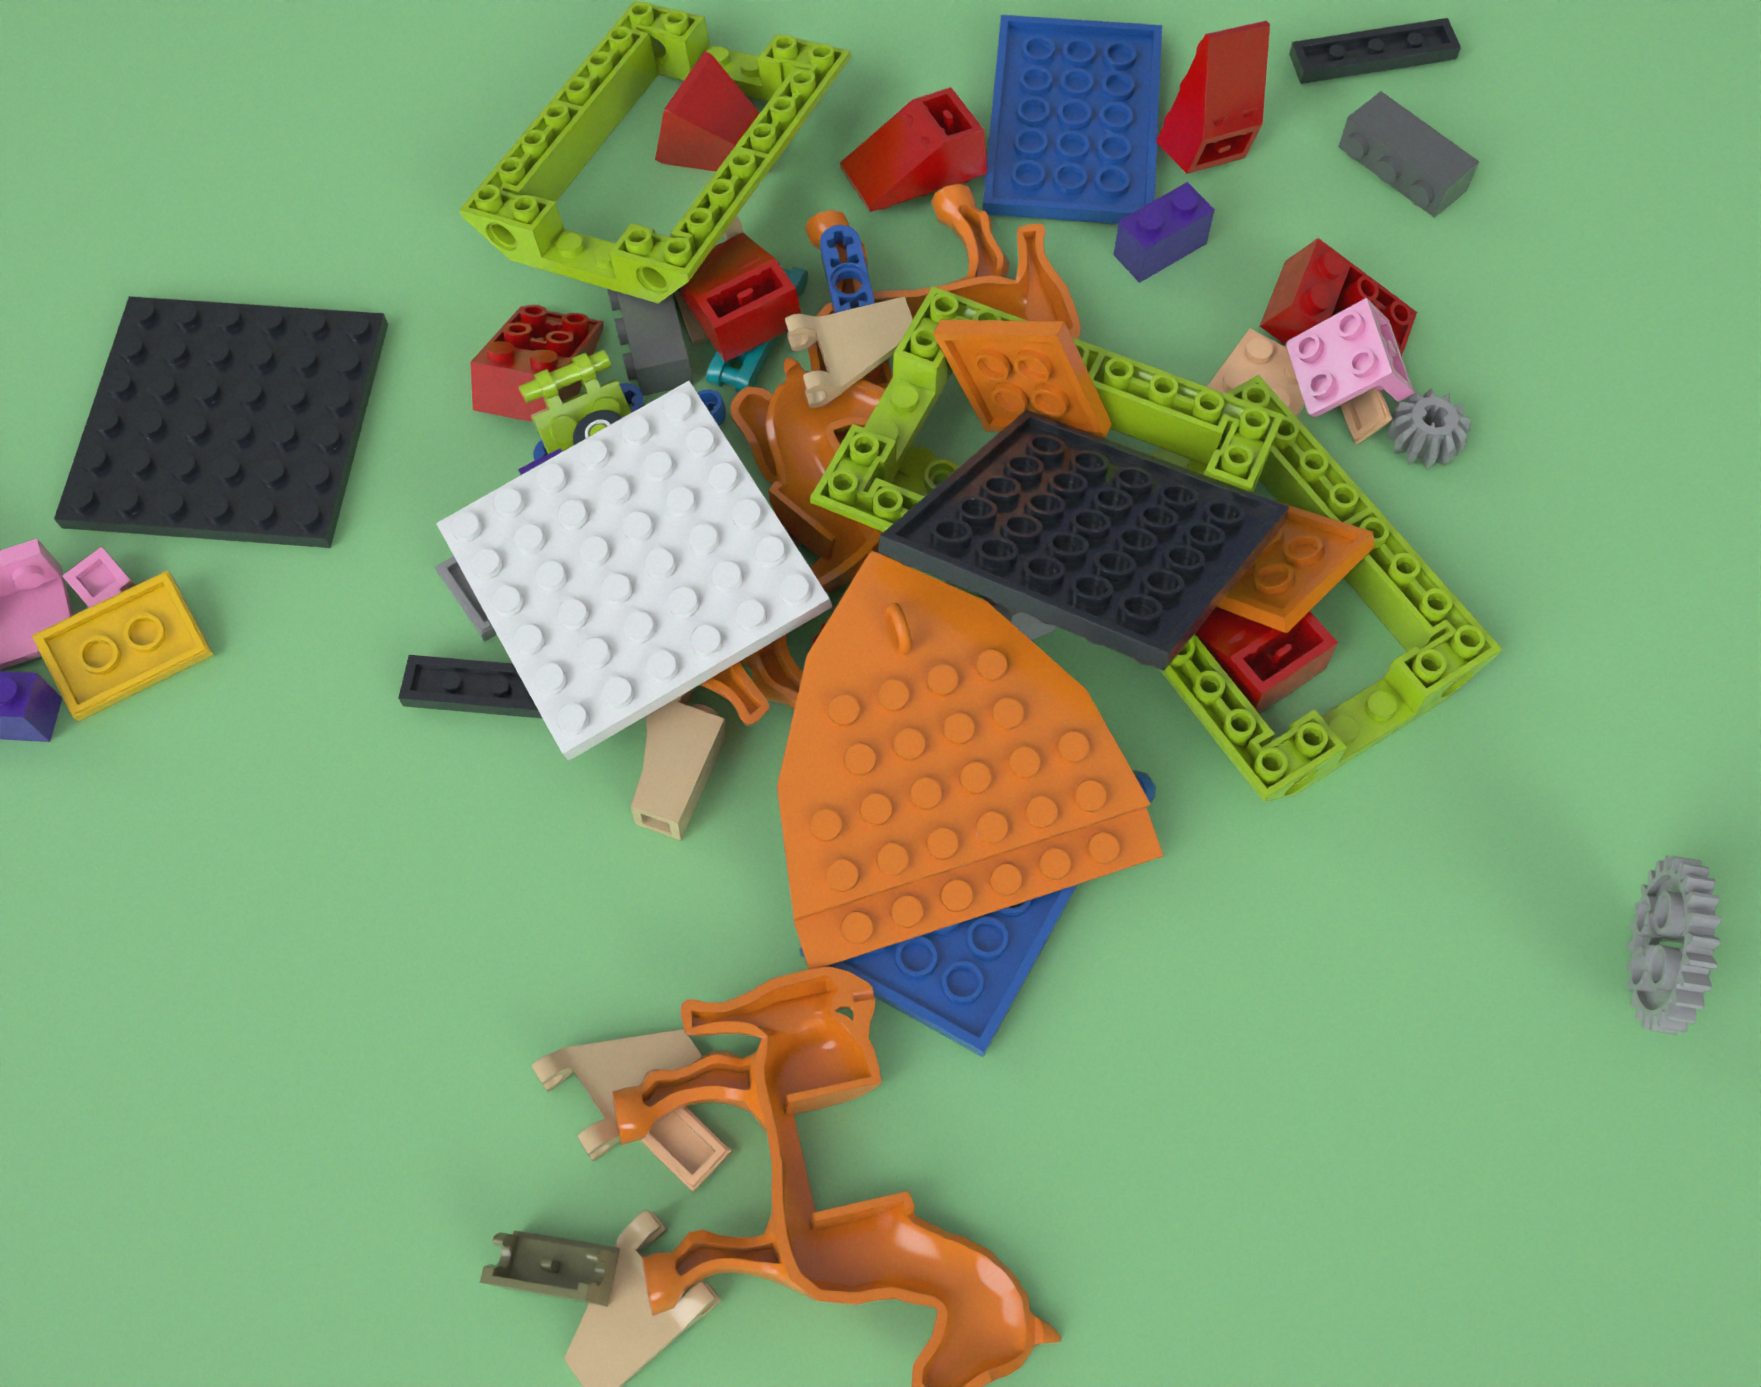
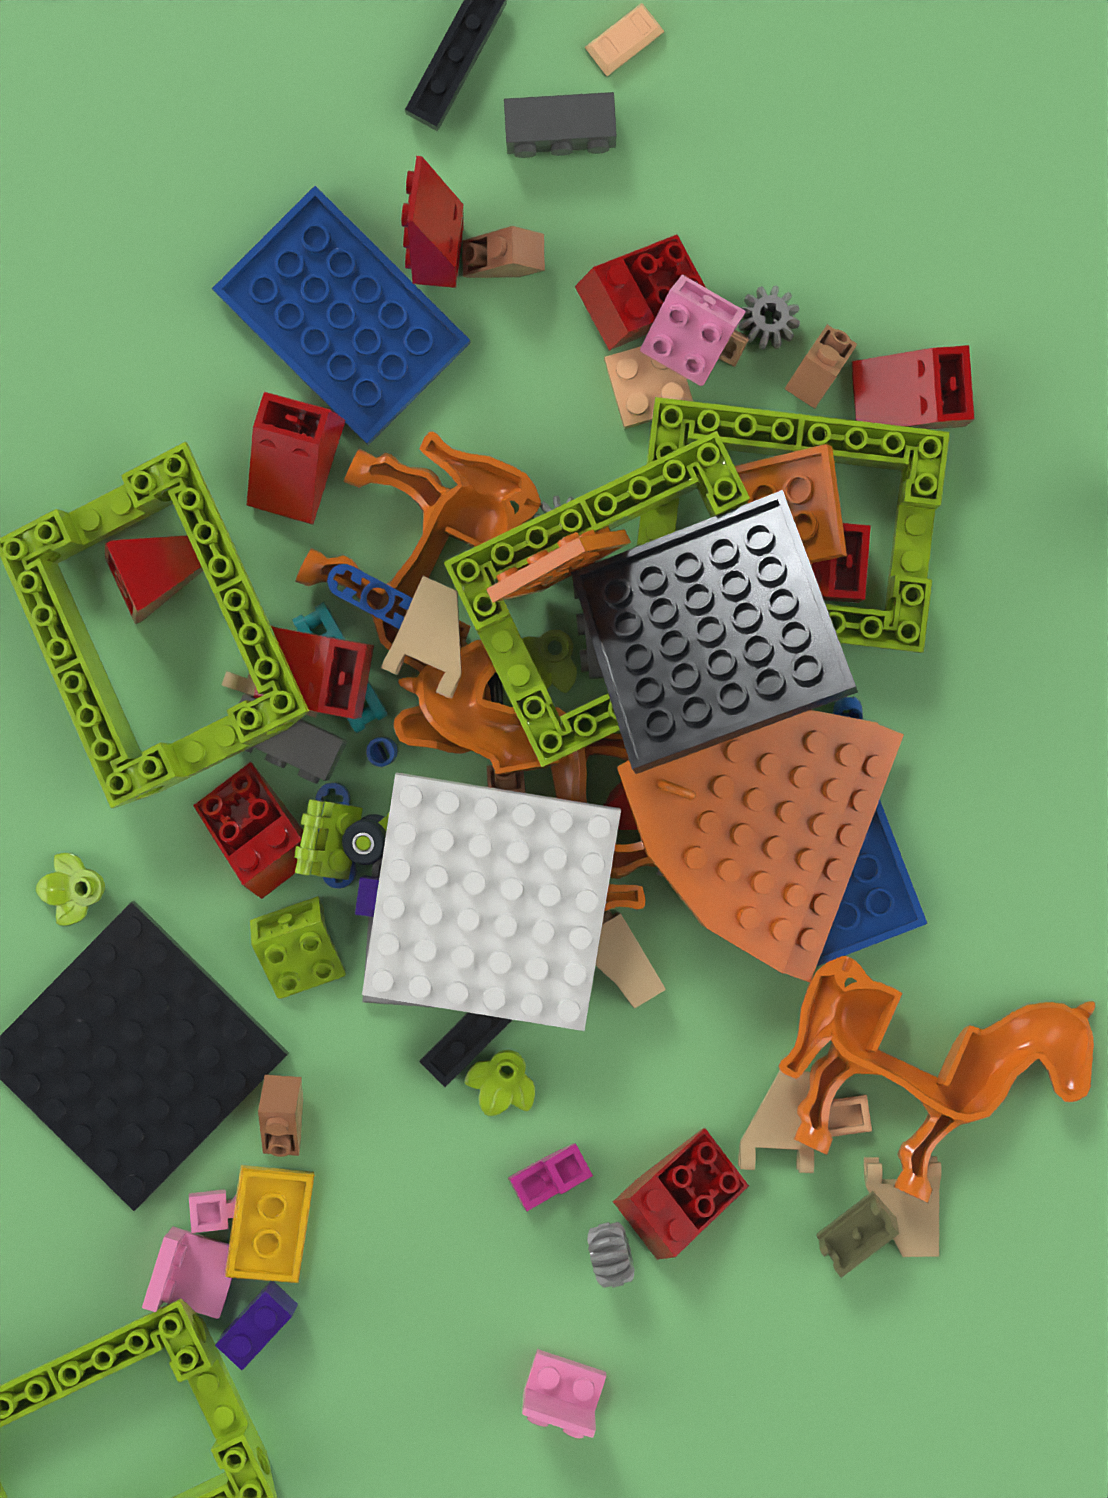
camera: 50 degrees left, 25 degrees up
(110, 1079) = (562, 1394): none -> bright pink bracket
(254, 572) = (281, 1115): none -> nougat slope
(322, 998) = (610, 1254): none -> light grey gear
(359, 264) = (66, 890): none -> lime plate
(373, 879) = (550, 1176): none -> dark pink slope
(440, 470) = (296, 948): none -> lime bracket
(440, 756) = (501, 1088): none -> lime plate
(454, 1030) = (681, 1195): none -> red slope
(1163, 232) = (489, 346): dark purple brick -> none
(1255, 189) = (503, 254): none -> nougat slope
(1434, 503) = (821, 366): none -> nougat slope
(1516, 598) = (915, 388): none -> red slope
(1528, 157) = (624, 39): none -> light nougat tile

